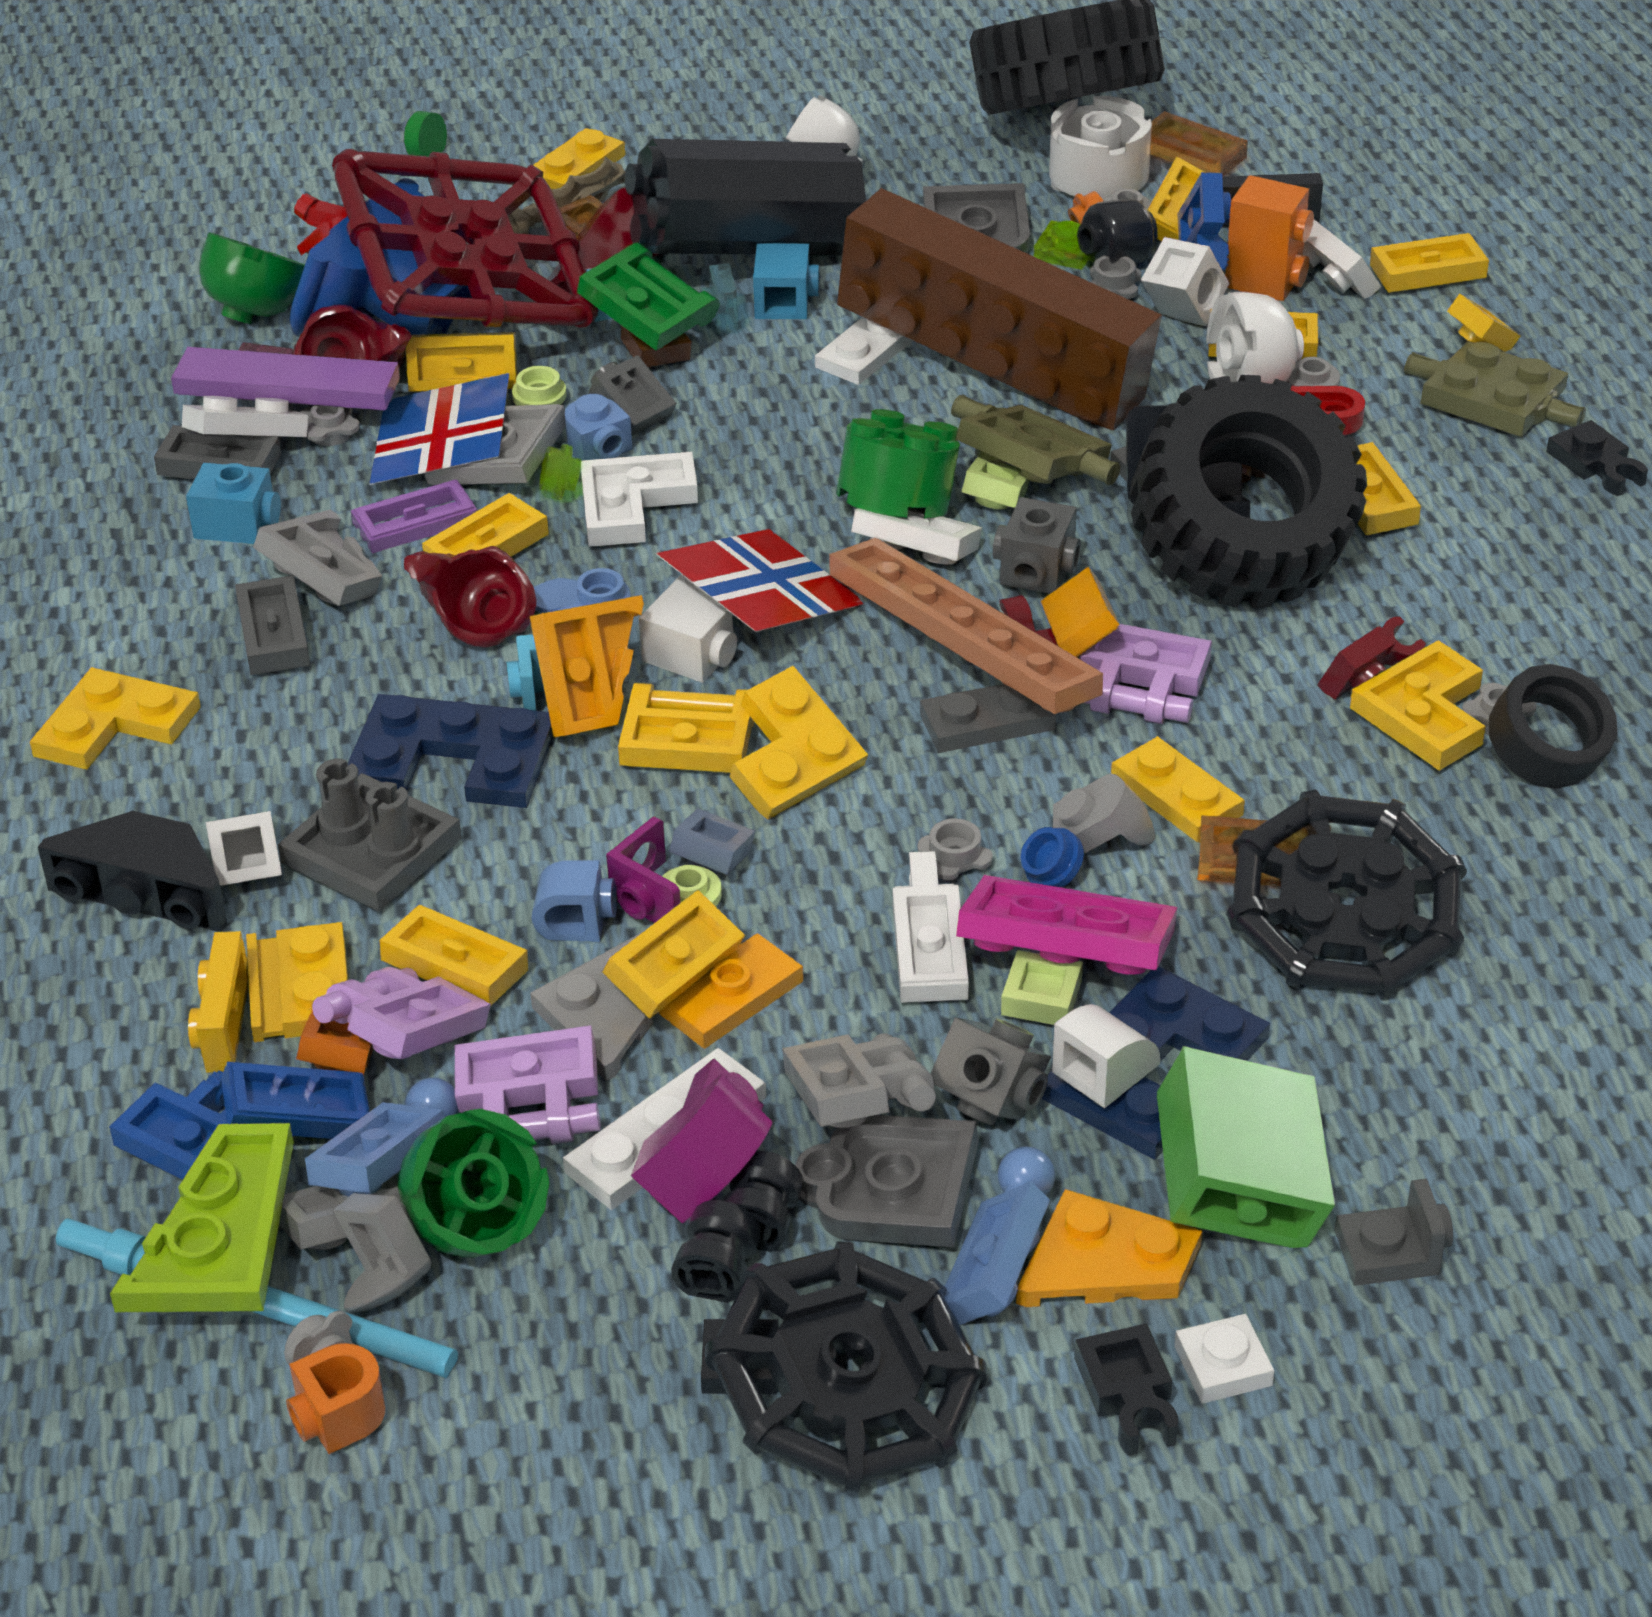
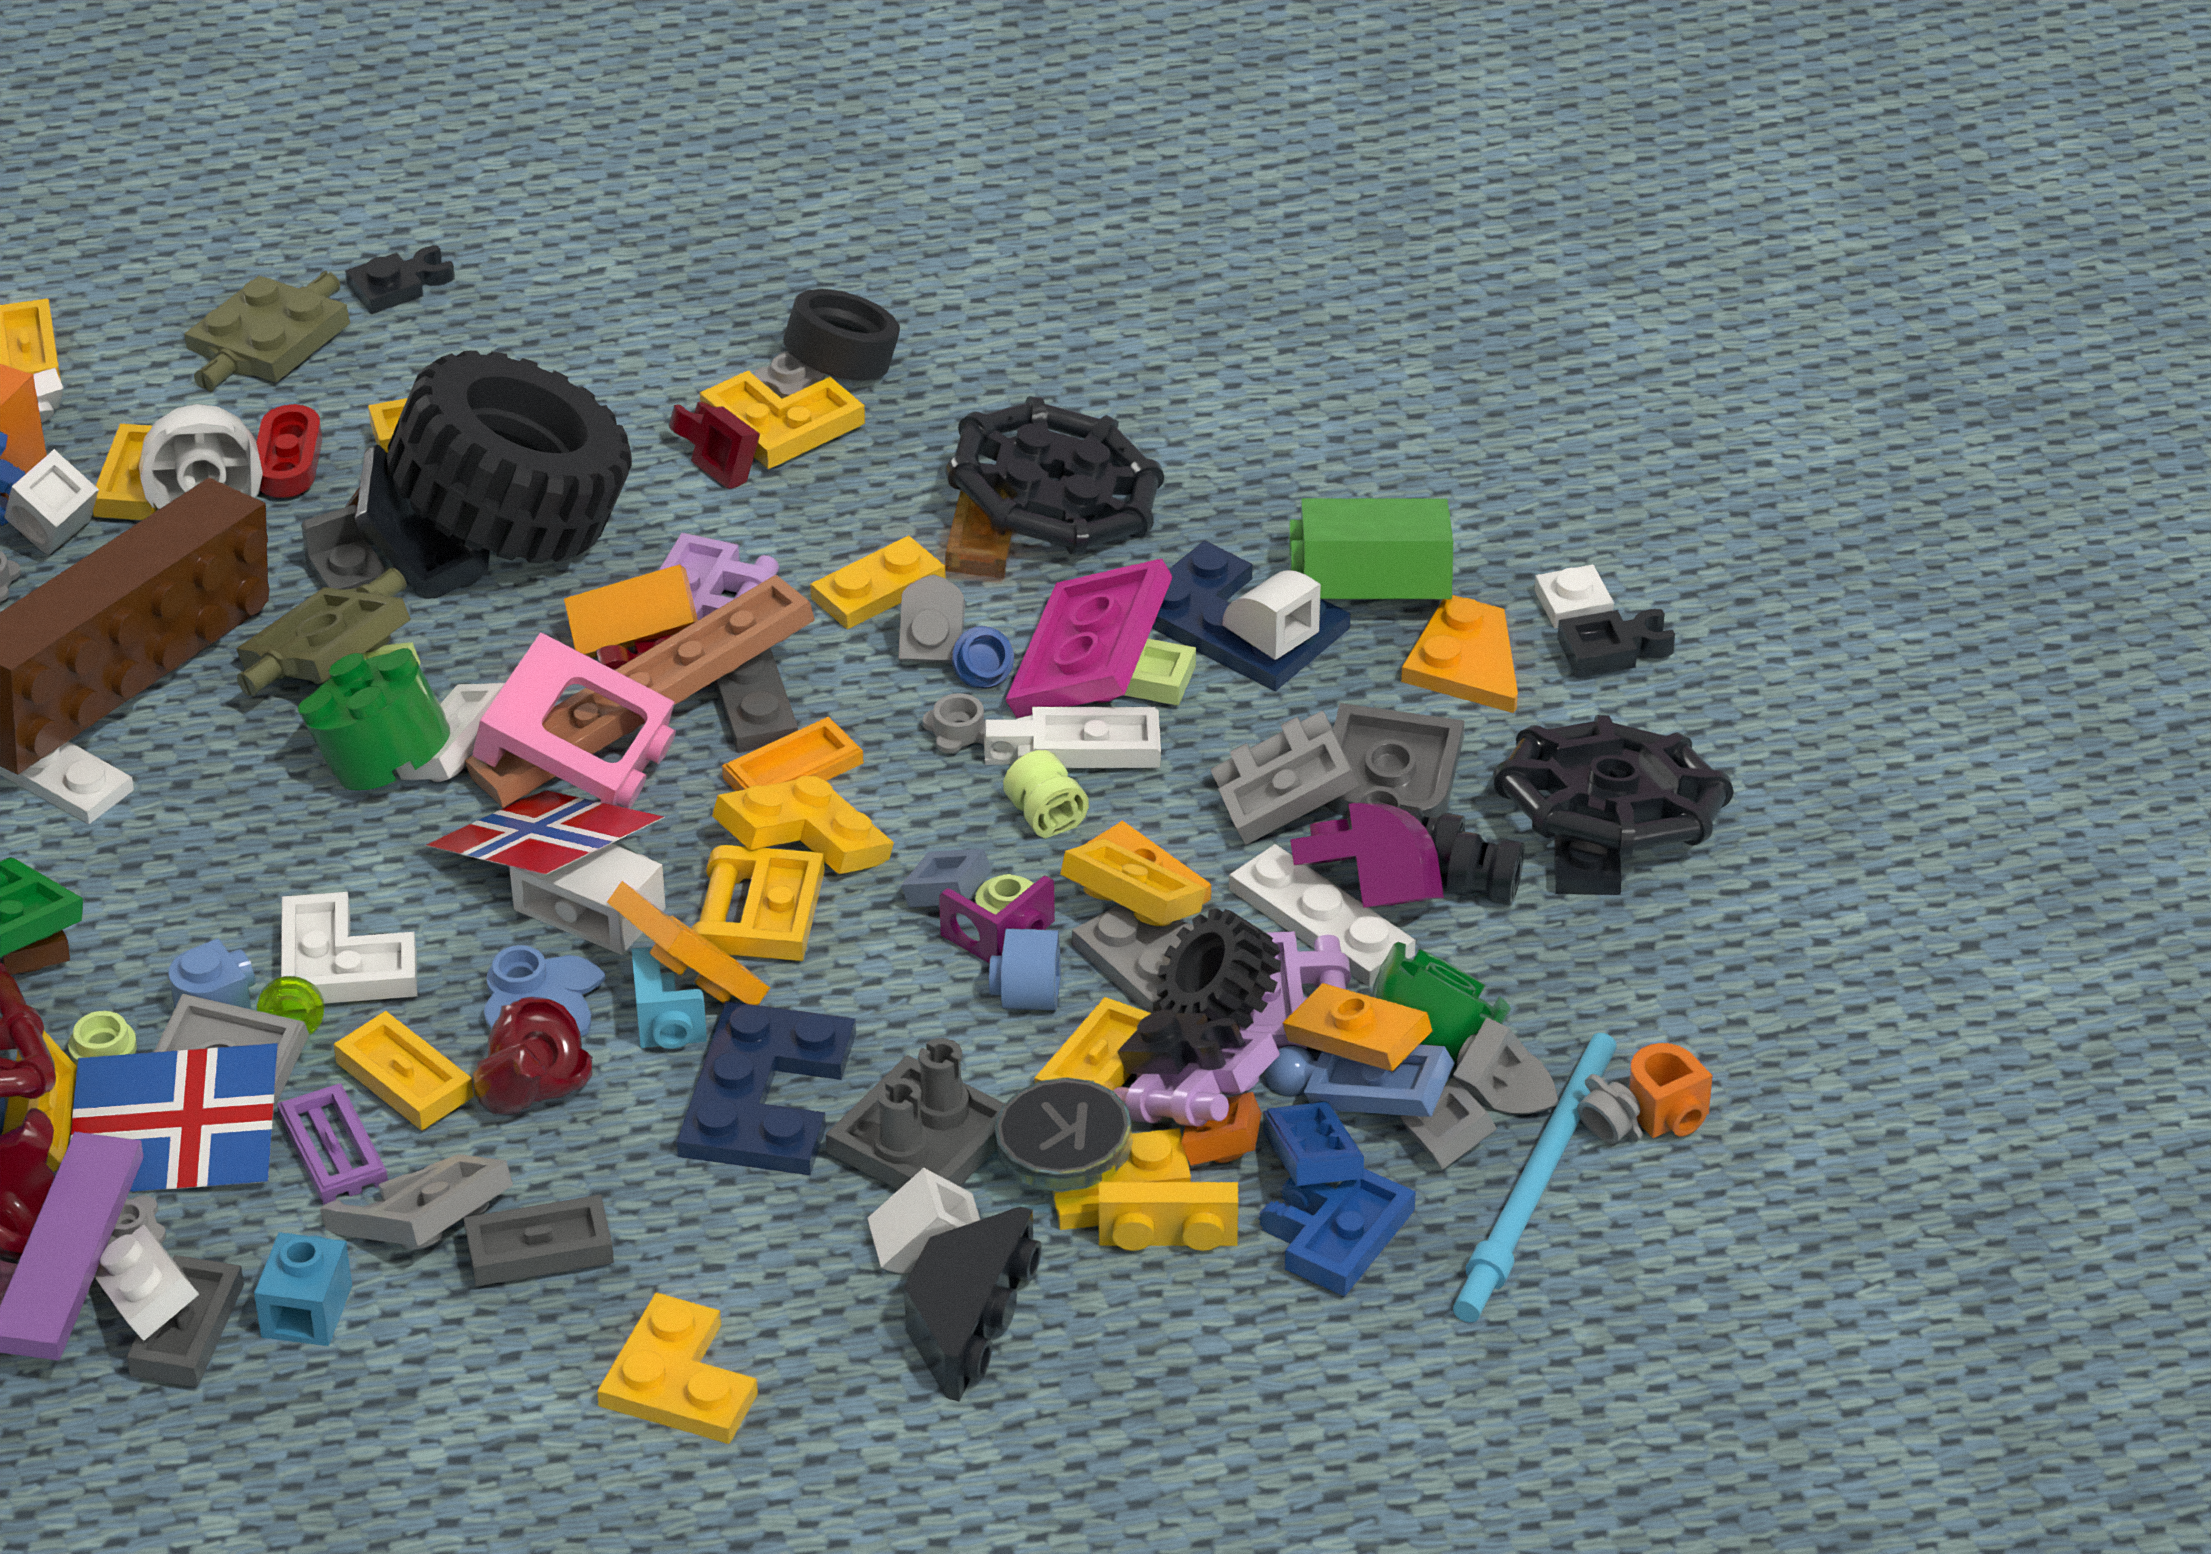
camera: 90 degrees left, 0 degrees up
(222, 1230) = (1486, 1168): lime wing -> none
(322, 914) = (1063, 1133): none -> tile
(402, 1112) = (1357, 1026): none -> light orange plate
(425, 979) = (1171, 1040): none -> black plate
(515, 1008) = (1219, 968): none -> black tyre
(635, 391) = (133, 955): dark grey bracket -> none
(835, 905) = (1045, 793): none -> yellowish green wheel
(893, 529) = (531, 692): none -> bright pink window
(899, 746) = (811, 751): none -> light orange tile
(991, 1069) = (1276, 689): dark grey brick -> none
(1001, 1237) = (1489, 704): medium blue plate -> none
(1037, 545) = (506, 627): dark grey brick -> none
(1397, 1240) = (1451, 474): dark grey bracket -> none
(1481, 324) = (163, 320): yellow plate -> none

